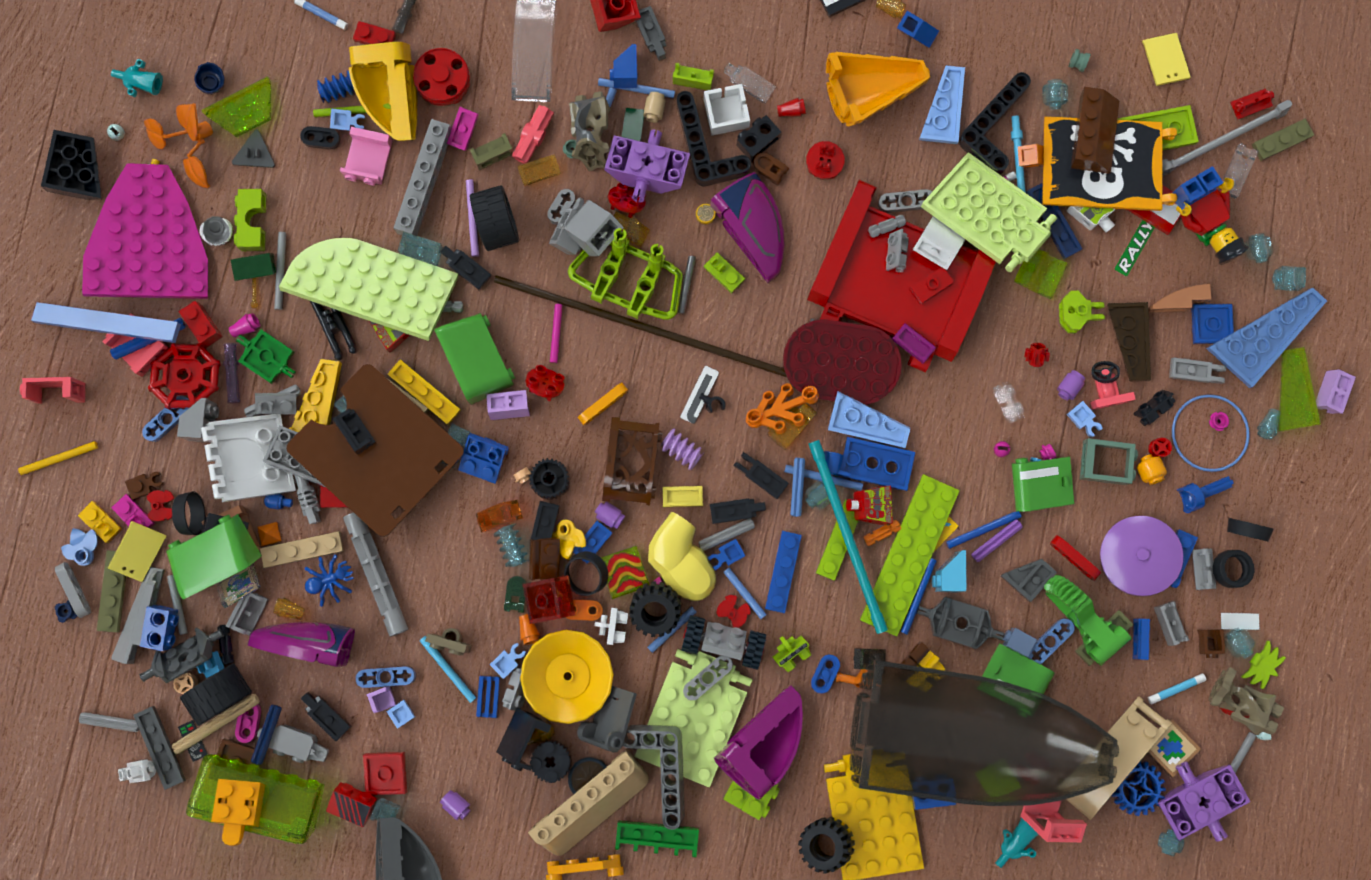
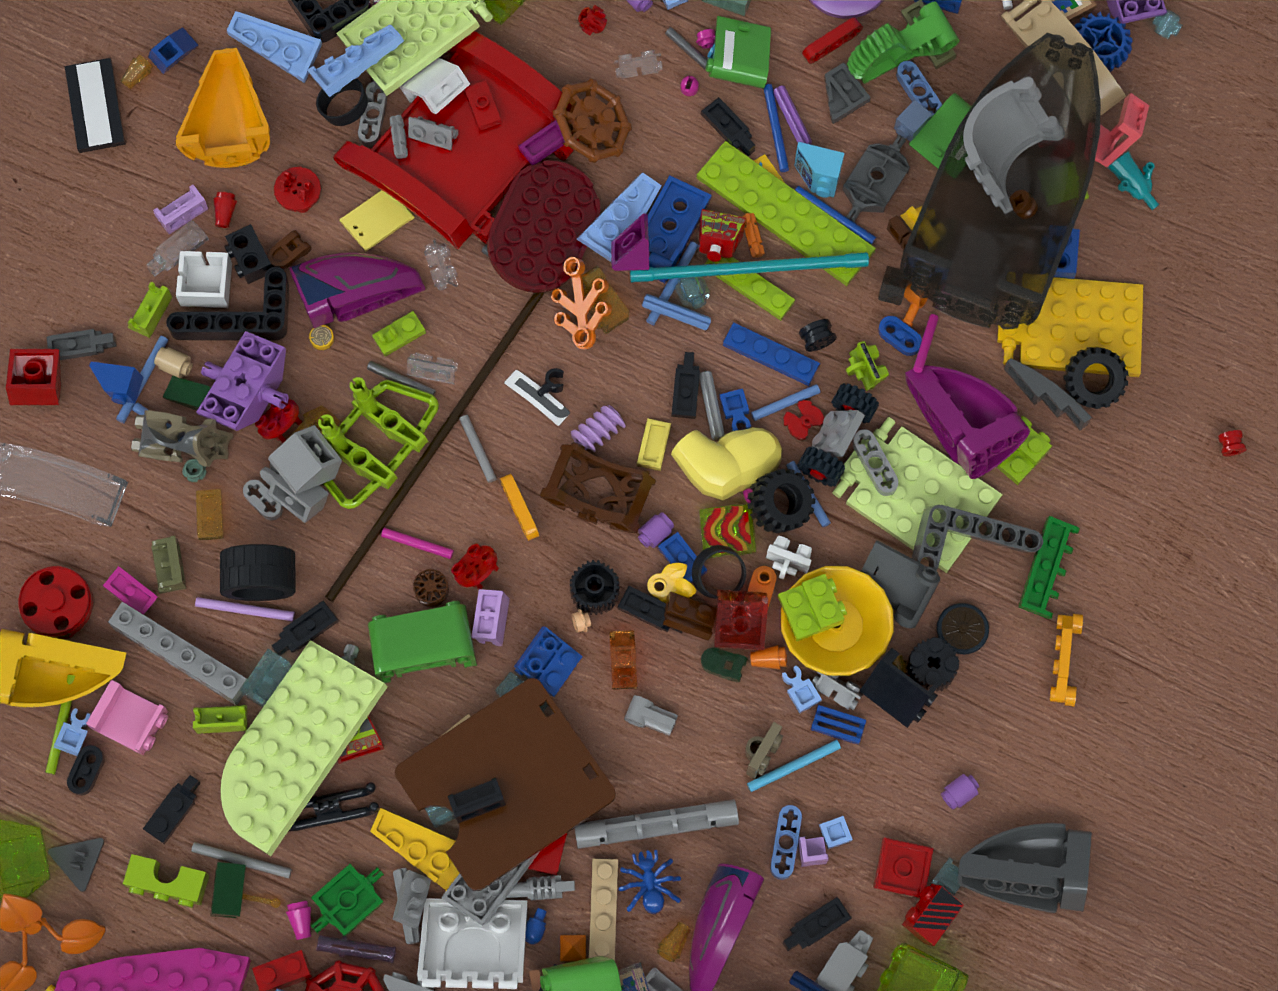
camera: 75 degrees left, 10 degrees down
(216, 230) = (167, 926): light grey hair -> none
(305, 209) = (172, 810): none -> black hinge
(335, 87) = (25, 733): blue piece -> none
(382, 224) = (220, 719): none -> lime hinge
(424, 392) = (446, 715): yellow plate -> none
(460, 542) = (644, 713): none -> light grey piece
(510, 546) = (664, 652): clear light blue piece -> none
(521, 353) = (431, 588): none -> reddish brown wheel
(533, 134) = (163, 511): coral piece -> none
(569, 654) = (812, 607): none -> lime plate
(590, 805) = (996, 629): tan windscreen -> none
(644, 359) = (477, 448): none -> light grey bar
(700, 297) = (423, 367): none -> clear hinge
(762, 476) = (653, 348): black hinge -> none
(782, 75) = (181, 210): none -> lavender hinge
(797, 286) = (438, 255): none -> clear hinge
(806, 606) = (817, 335): none -> black wheel
(808, 798) = (1041, 388): none -> dark grey slope
(814, 227) = (376, 219): none -> light yellow container
(822, 696) = (925, 344): none -> dark pink bar
(837, 437) = (631, 247): none -> magenta slope
(912, 160) = (323, 101): none -> black tyre
(945, 174) = (357, 59): none -> light blue wing
(950, 385) = (601, 114): none -> dark orange plate
(966, 751) = (1023, 204): none -> reddish brown wheel
(973, 489) = (729, 126): none -> black hinge
(1014, 716) = (1001, 129): none -> light grey hinge
(1036, 438) = (687, 47): none -> flat silver bar

